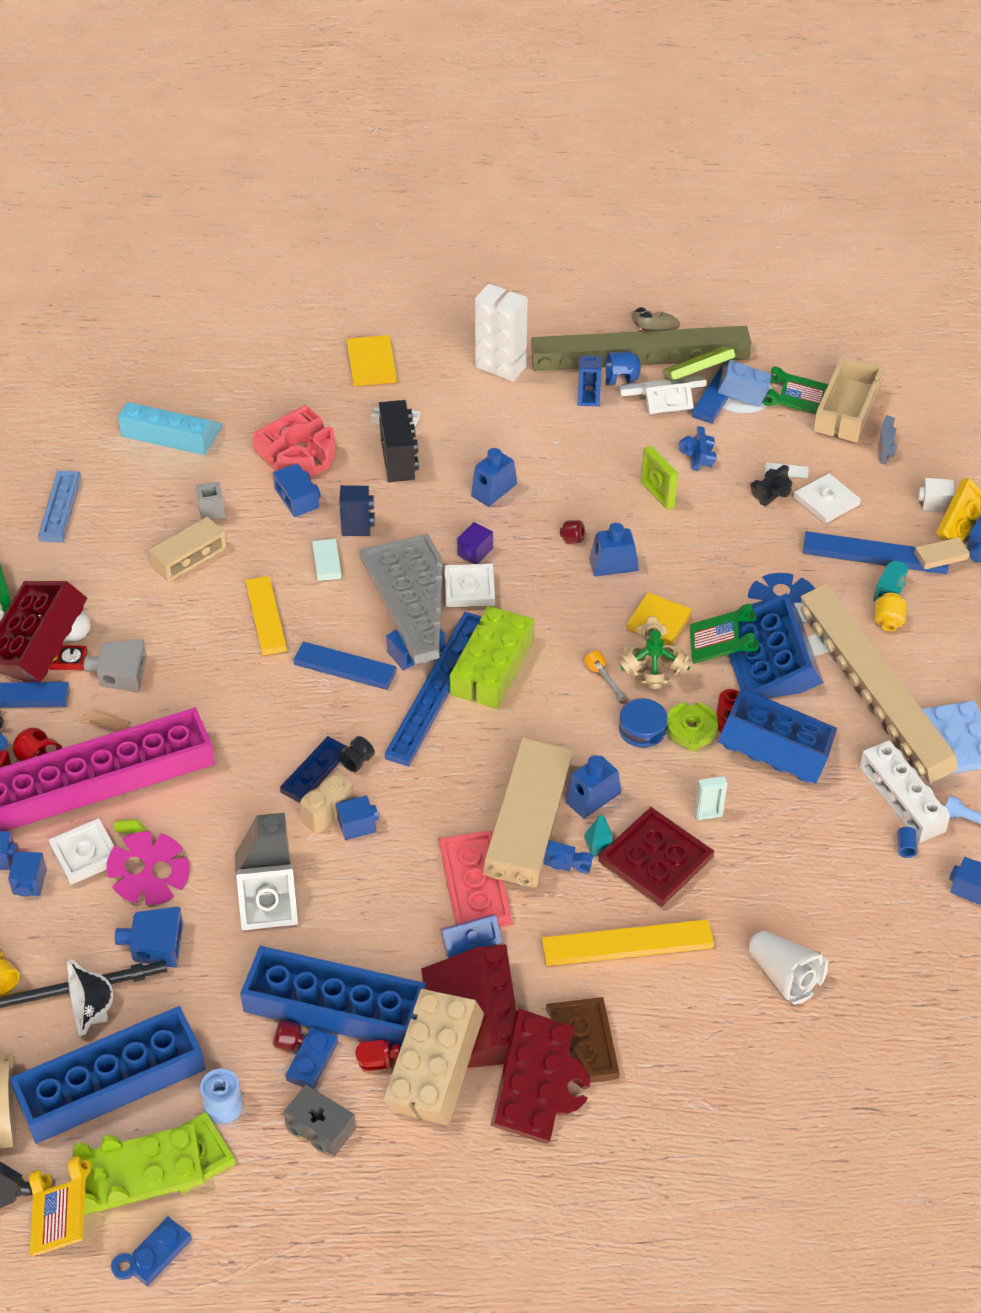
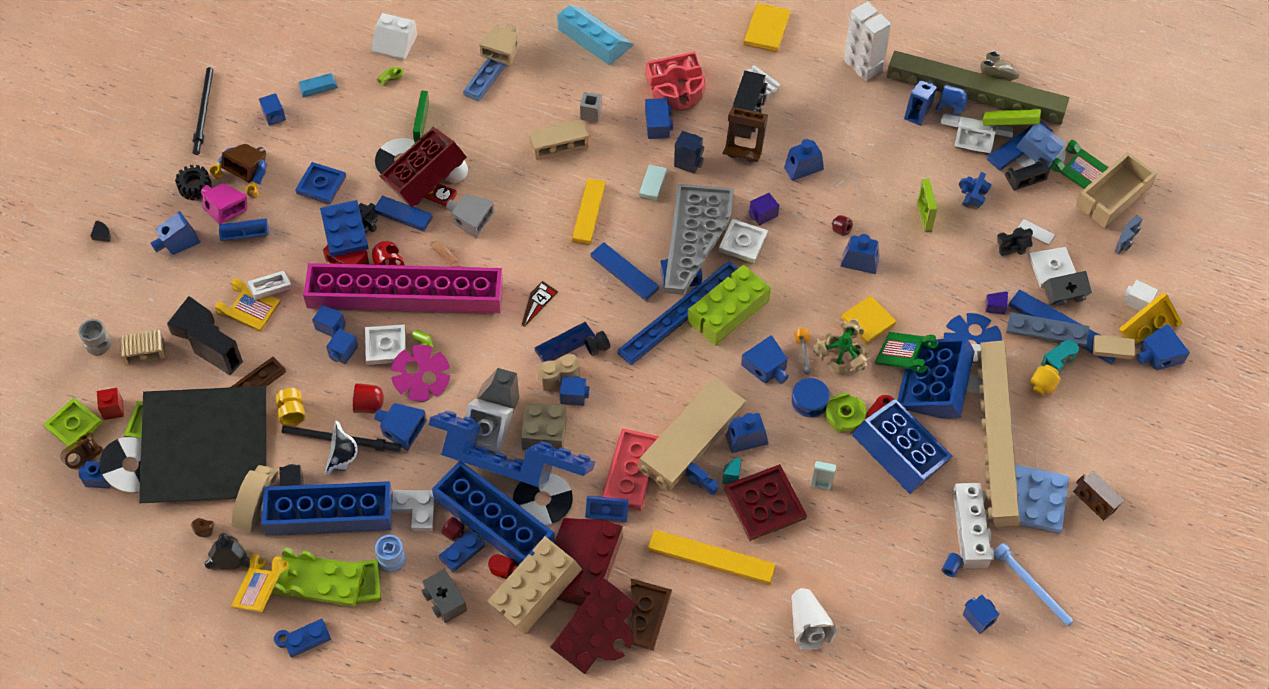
camera: 25 degrees right, 10 degrees up
(35, 1052) = (291, 475): none -> black brick
(61, 470) = (500, 44): none -> tan torso
(93, 922) = (367, 398): none -> red helmet
(226, 1023) = (419, 503): none -> white plate
(248, 916) = (533, 470): none -> blue bracket
(253, 733) = (538, 299): none -> sticker
(342, 871) = (544, 424): none -> dark tan brick
(400, 941) = (560, 501): none -> sticker
(413, 449) = (748, 118): none -> reddish brown window
(570, 702) = (766, 361): none -> blue torso
(746, 416) = (1028, 175): none -> black hinge
(790, 553) = (997, 302): none -> dark purple slope
(857, 511) = (1076, 282): none -> dark grey brick
(860, 560) = (1047, 329): none -> sand blue plate

